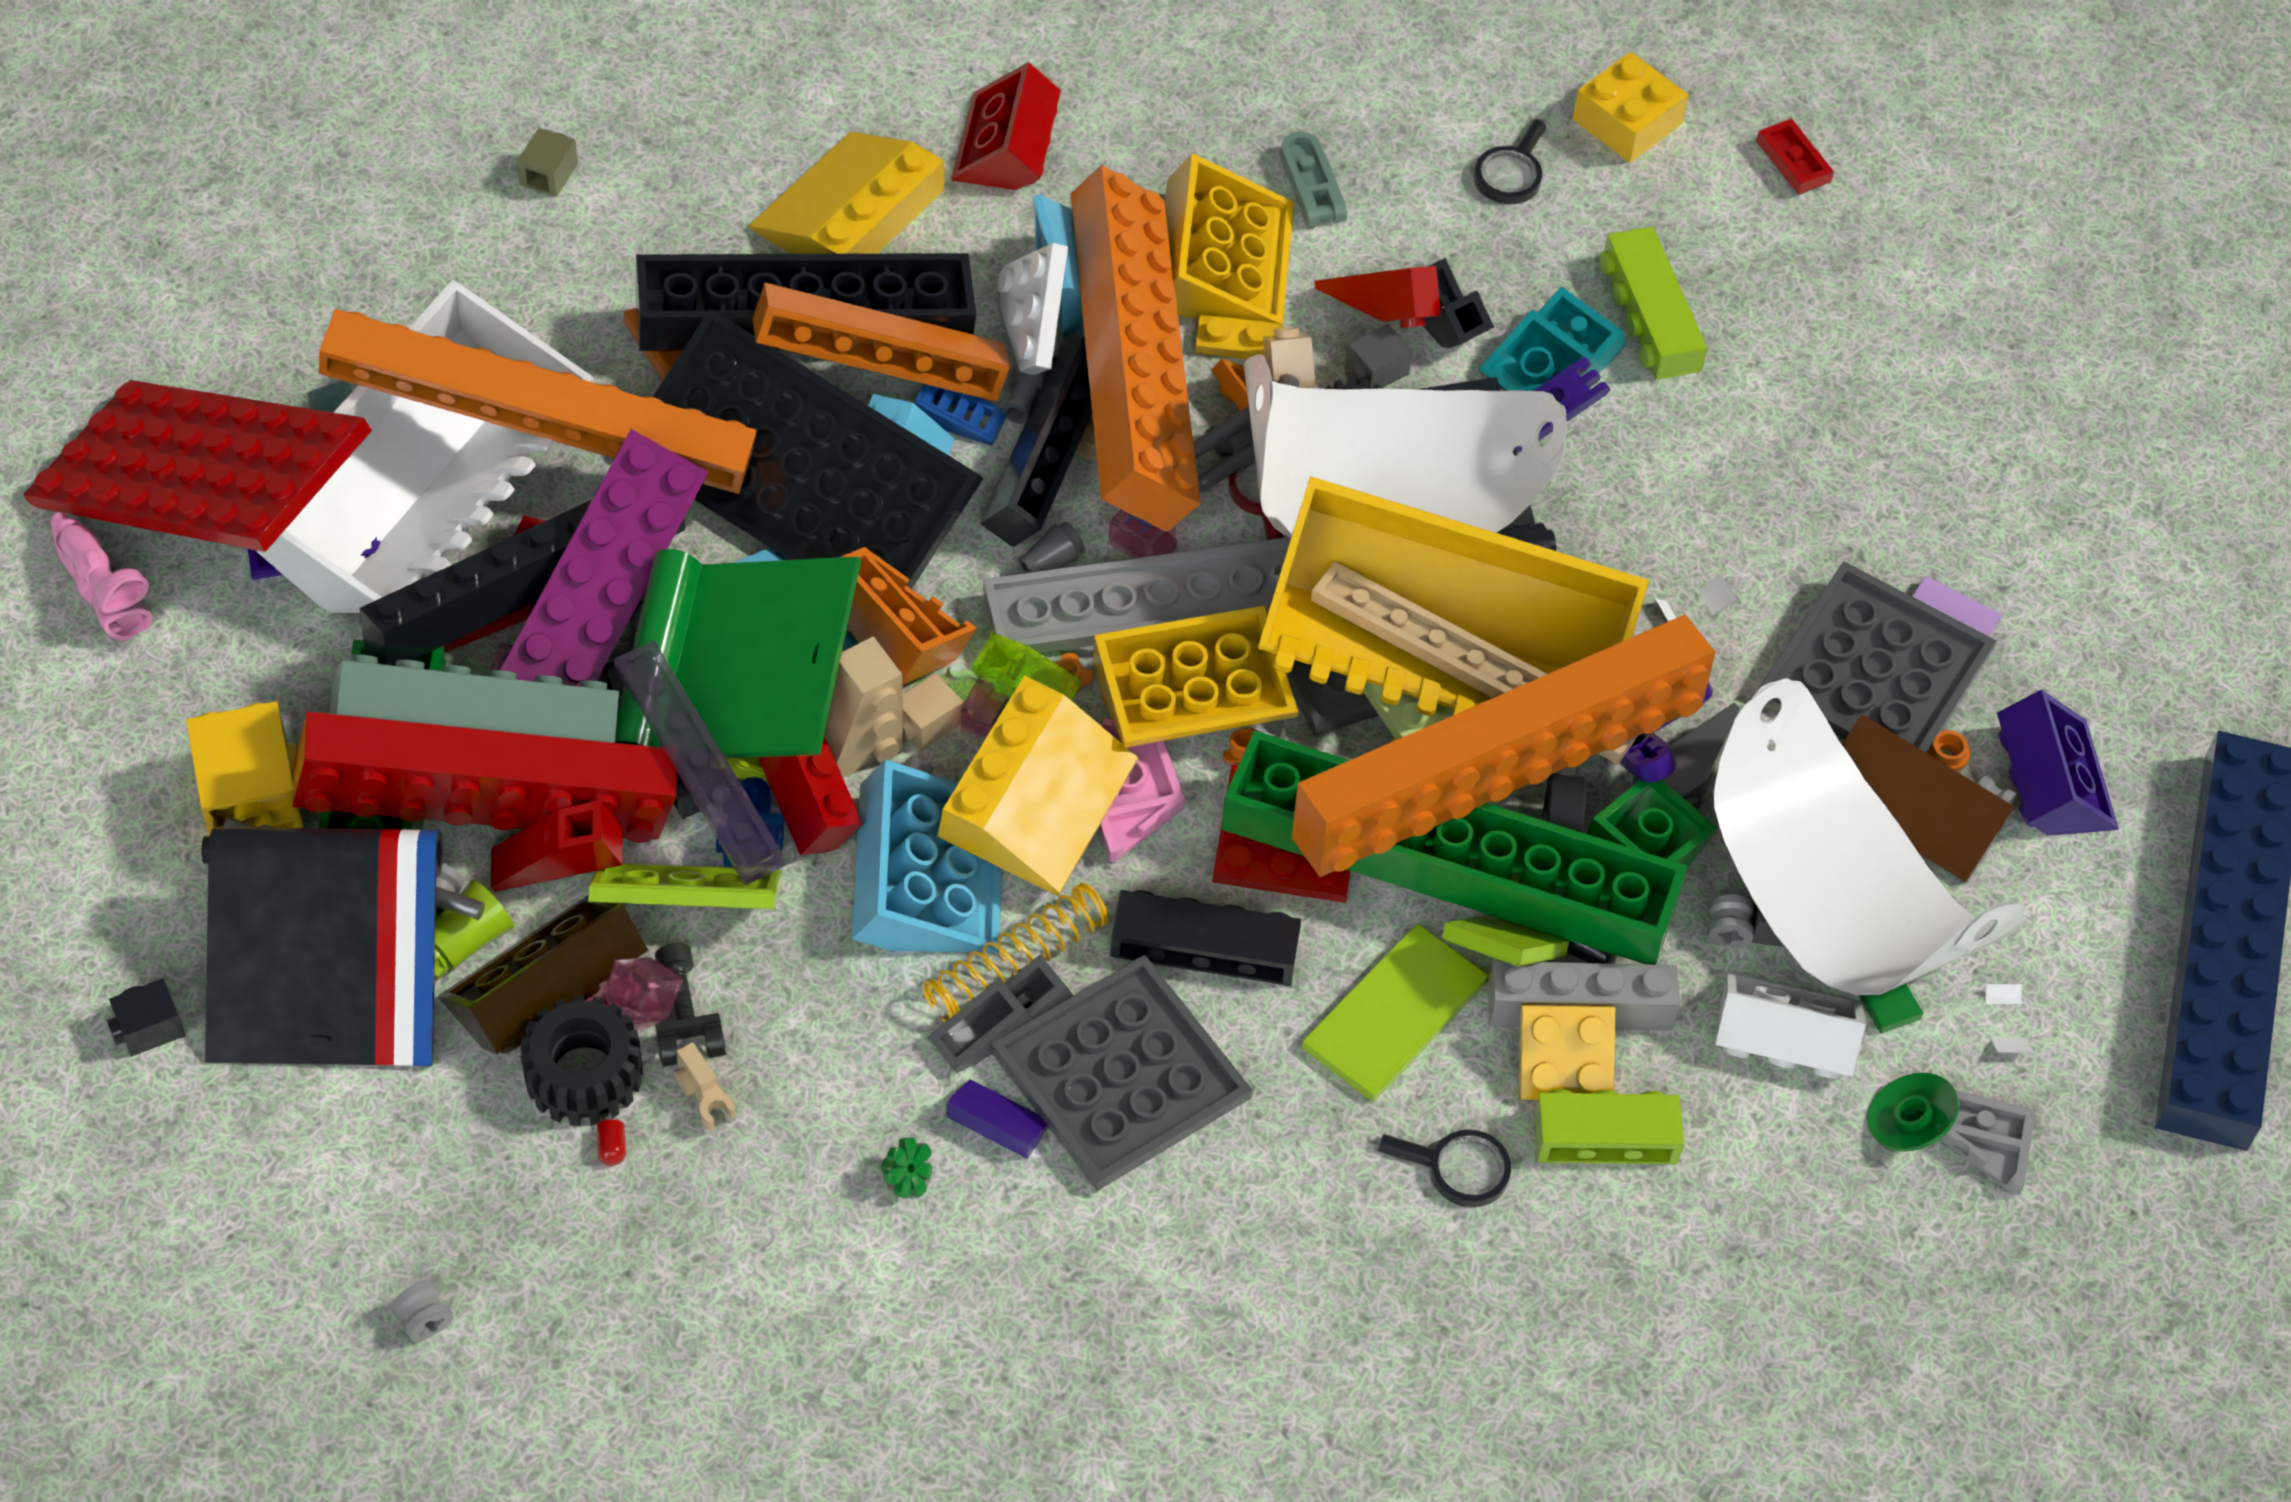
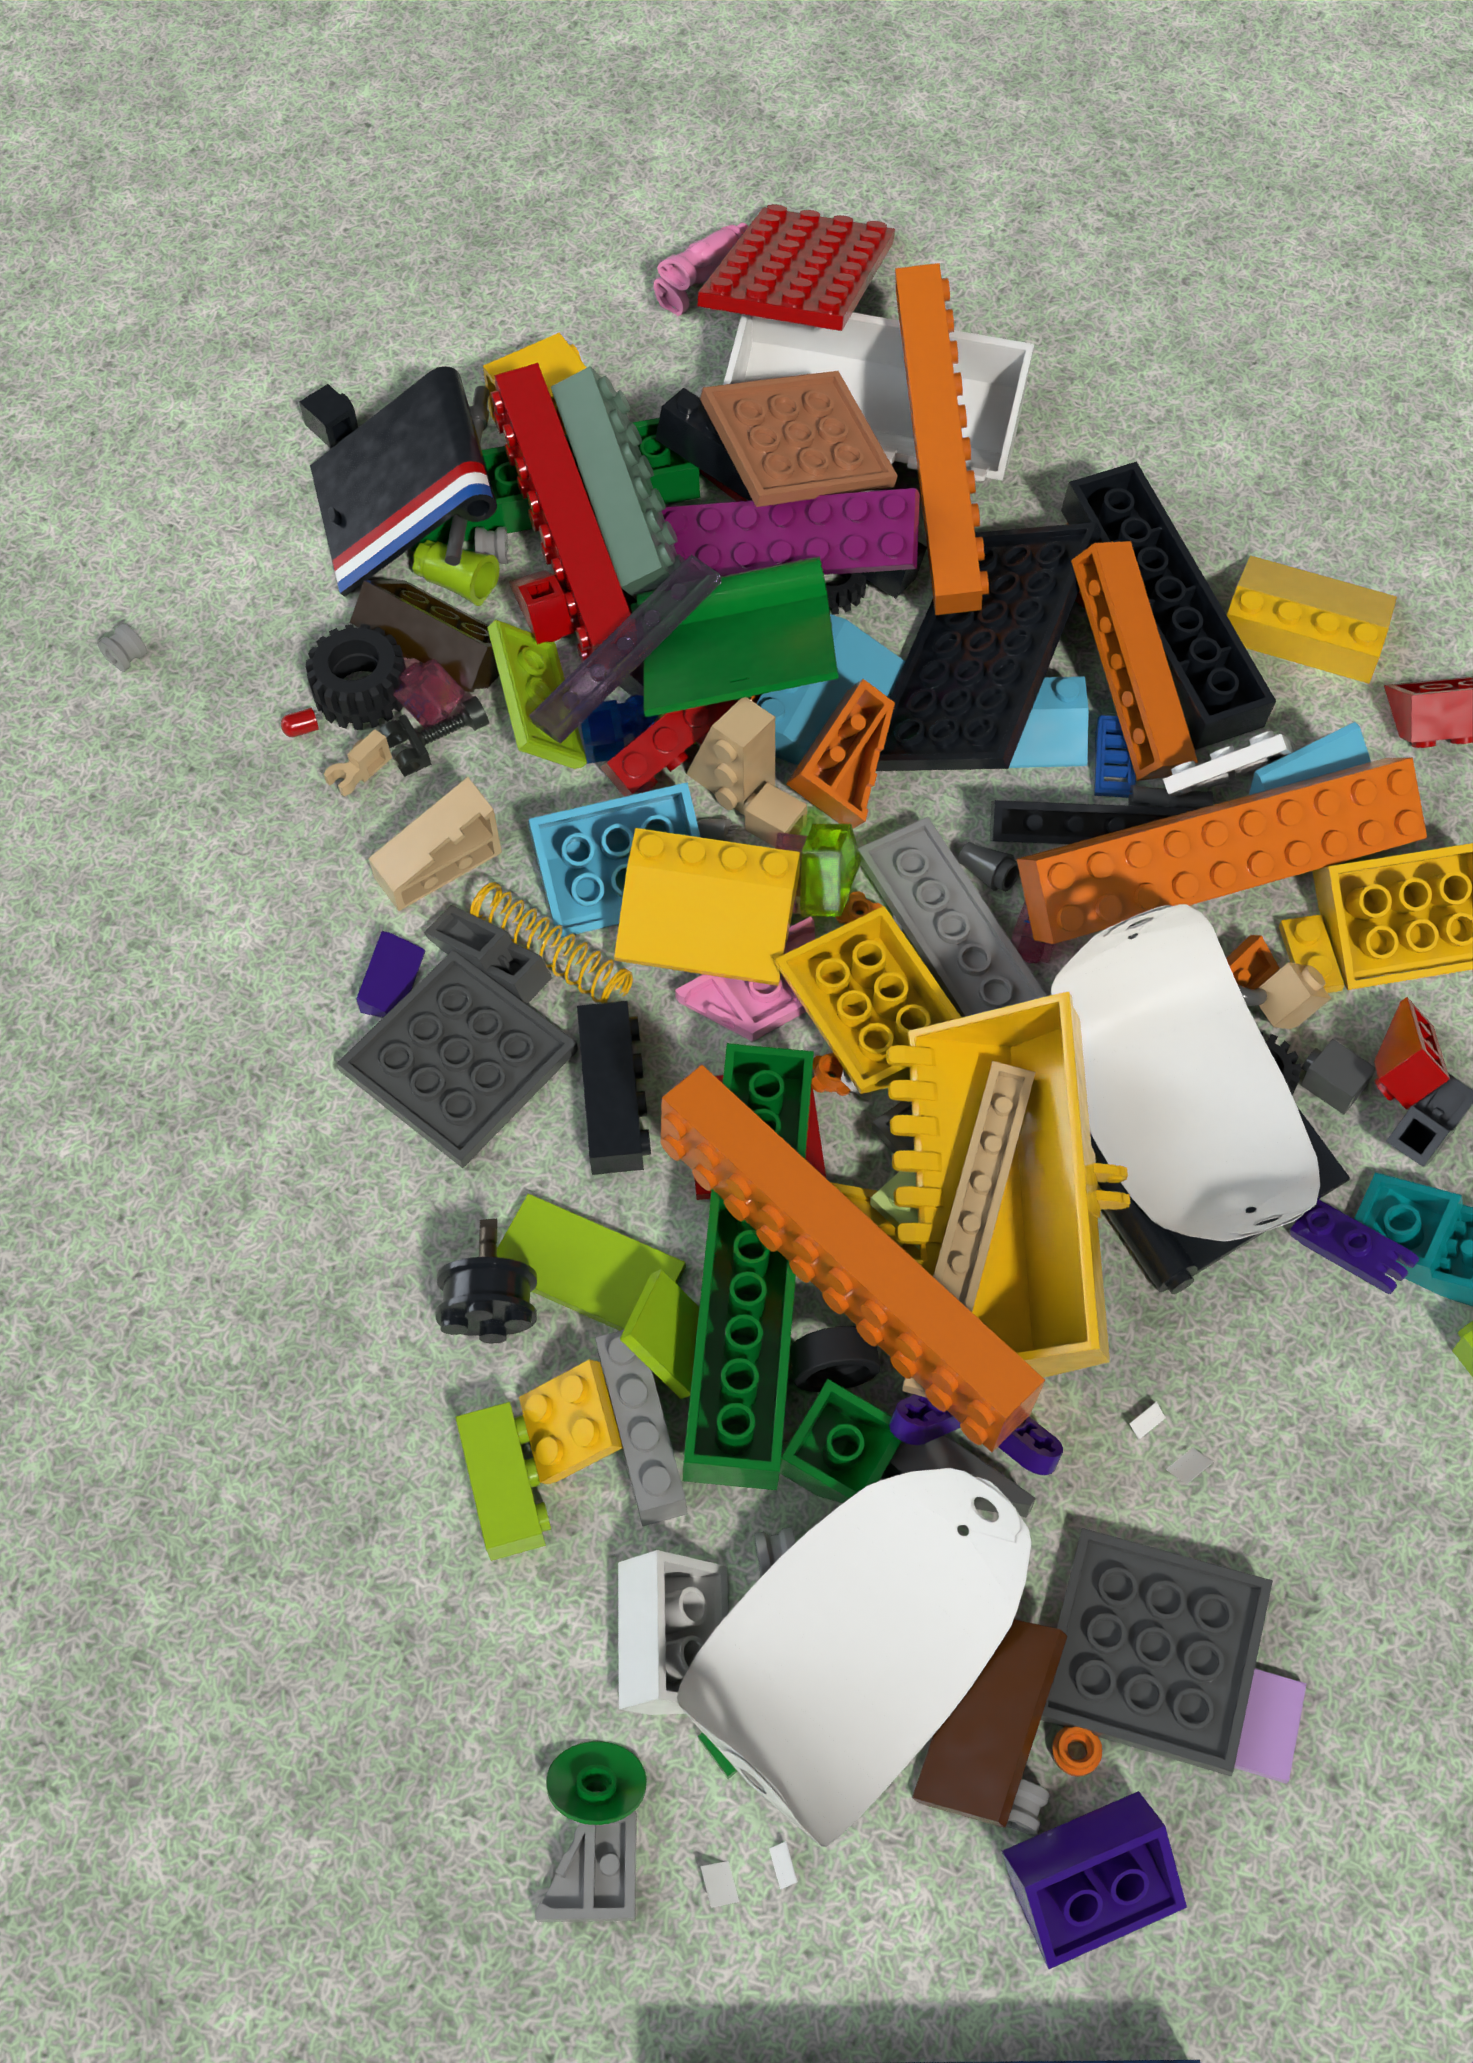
camera: 80 degrees right, 5 degrees up
(488, 522) = (797, 438): none -> nougat plate
(547, 162) = (1239, 400): olive brick -> none
(856, 1026) = (437, 846): none -> tan wedge
(906, 1167) = (319, 923): green plant -> none
(1423, 1087) = (486, 1293): none -> black wheel
(1464, 1166) = (434, 1366): piece -> none

